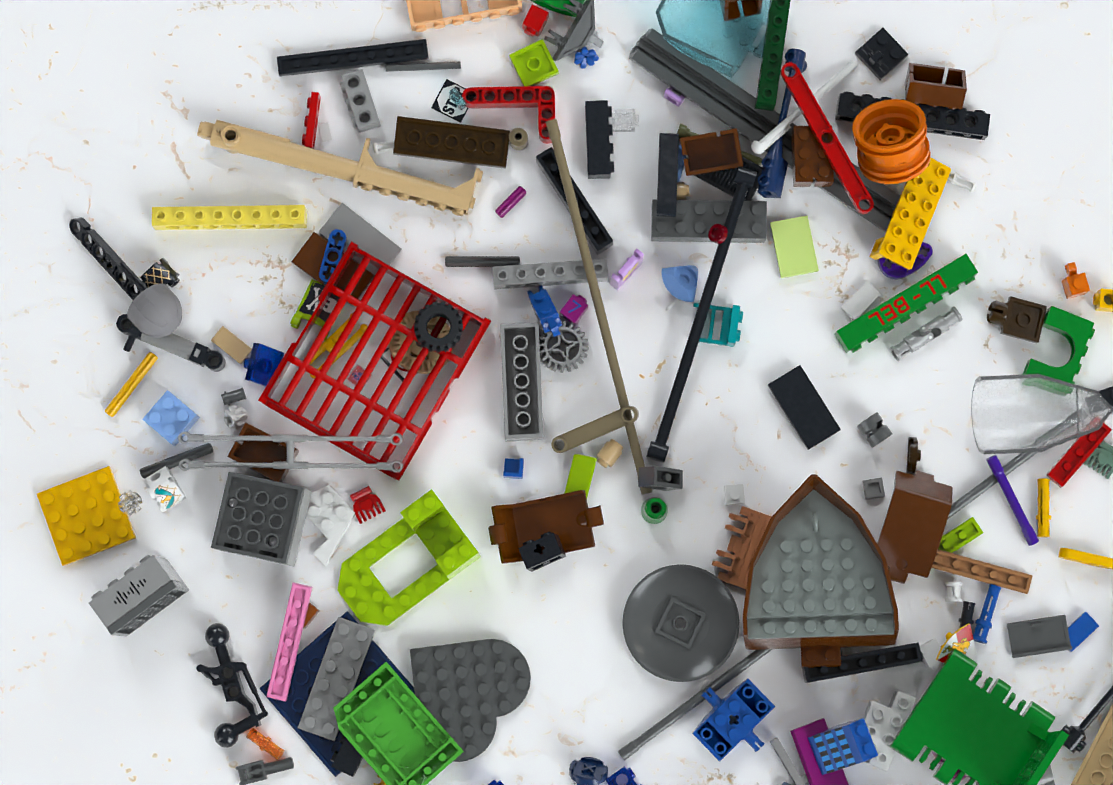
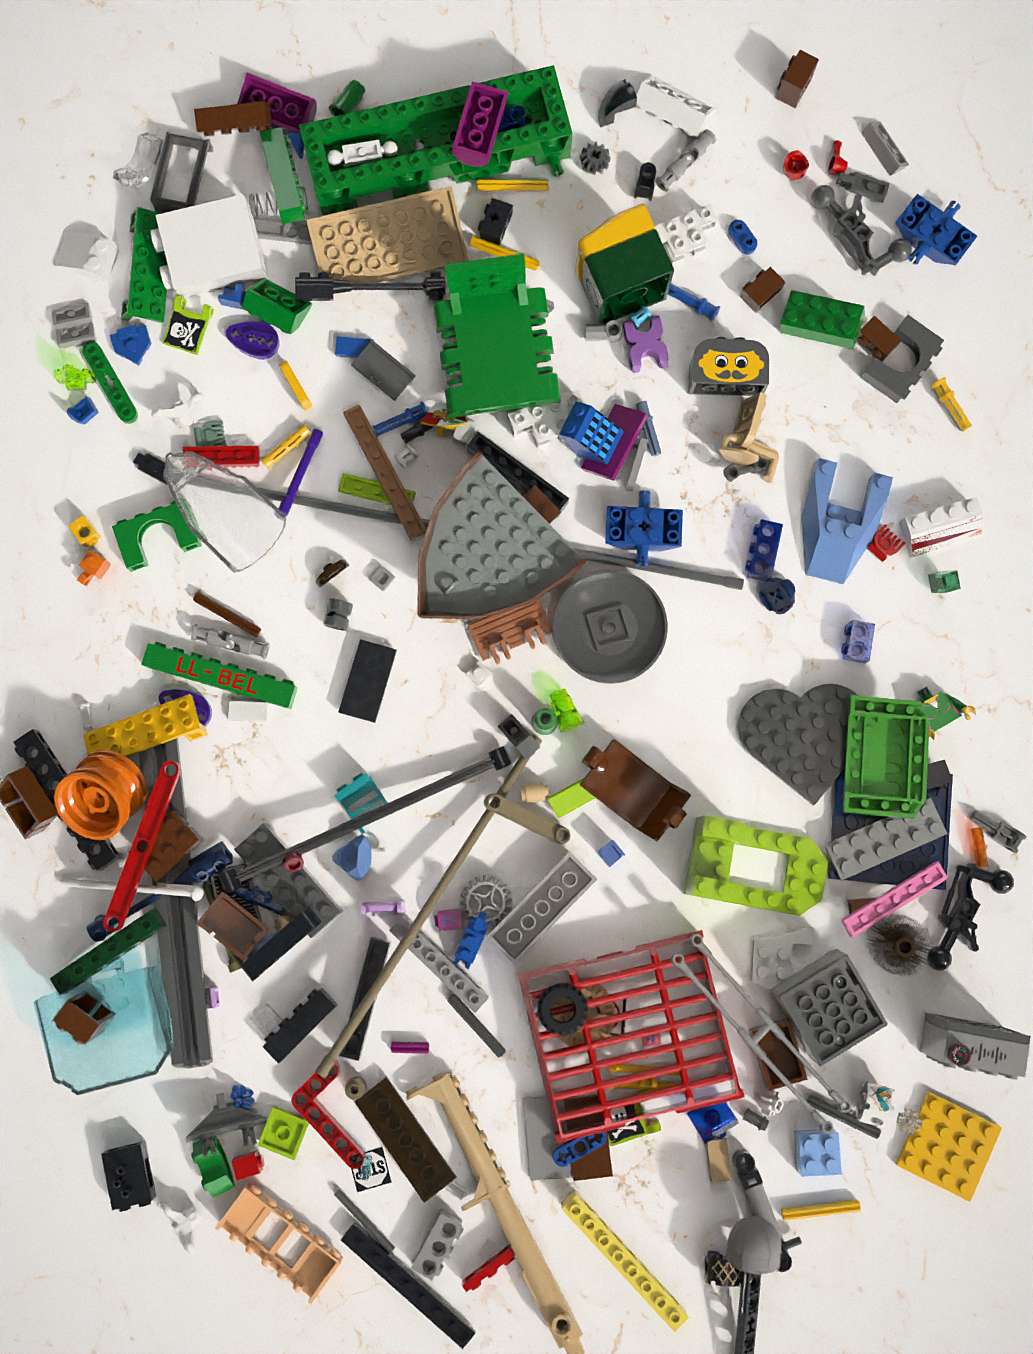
camera: 135 degrees left, 0 degrees up
(147, 570) = (959, 1054): none -> black tile
(248, 606) = (899, 945): none -> dark brown piece
(365, 502) = (738, 941): red piece -> none
(553, 551) = (645, 766): black brick -> none
(648, 531) = (565, 711): none -> clear neon green plant
(709, 195) = (267, 903): none -> dark blue piece
(794, 246) = (250, 798): yellowish green tile -> none
(881, 53) = (36, 868): black hinge -> none
(914, 524) = (381, 523): reddish brown panel -> none
(949, 349) = (227, 614): none -> reddish brown axle
(1018, 318) = (157, 584): dark brown plate -> none

